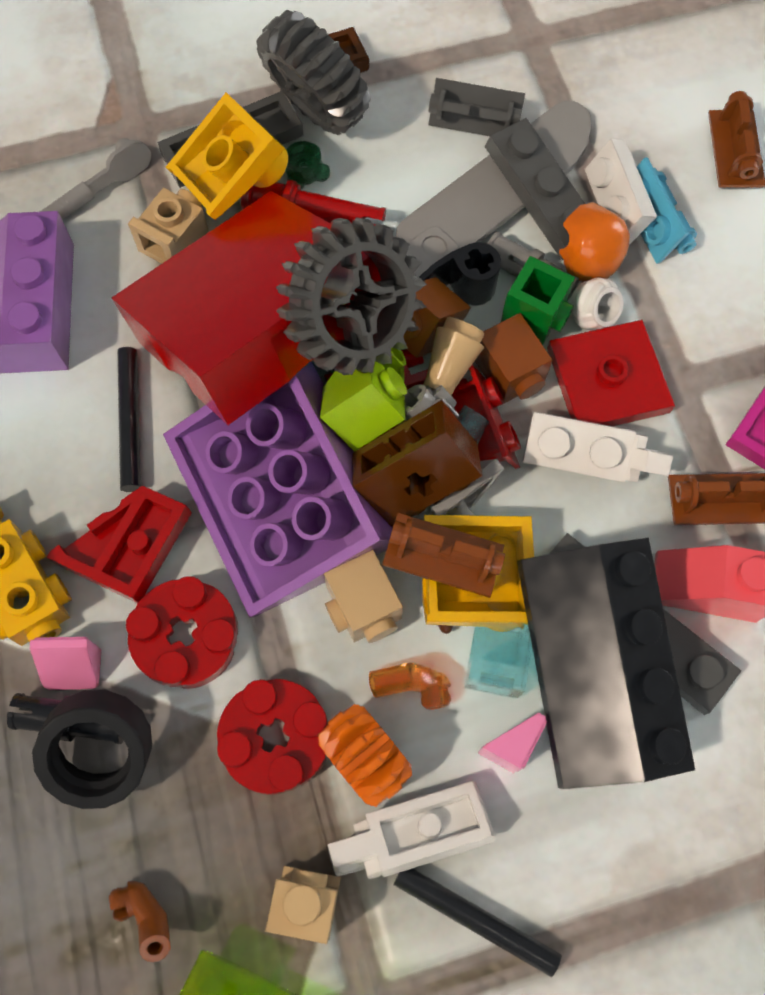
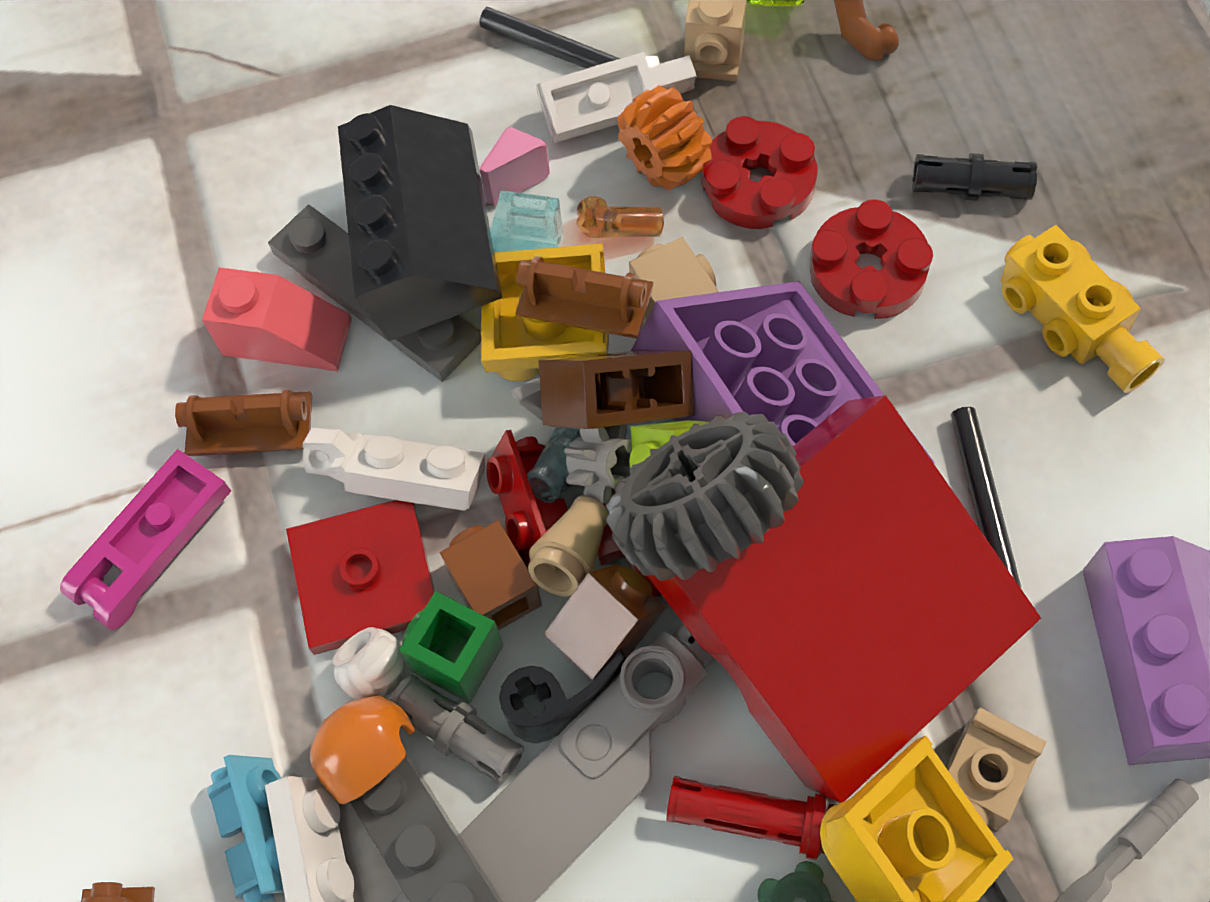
camera: 175 degrees left, 5 degrees down
(66, 662) = (989, 229): bright pink slope -> none
(81, 787) = (939, 132): black tyre -> none
(126, 543) = (954, 341): red wing -> none

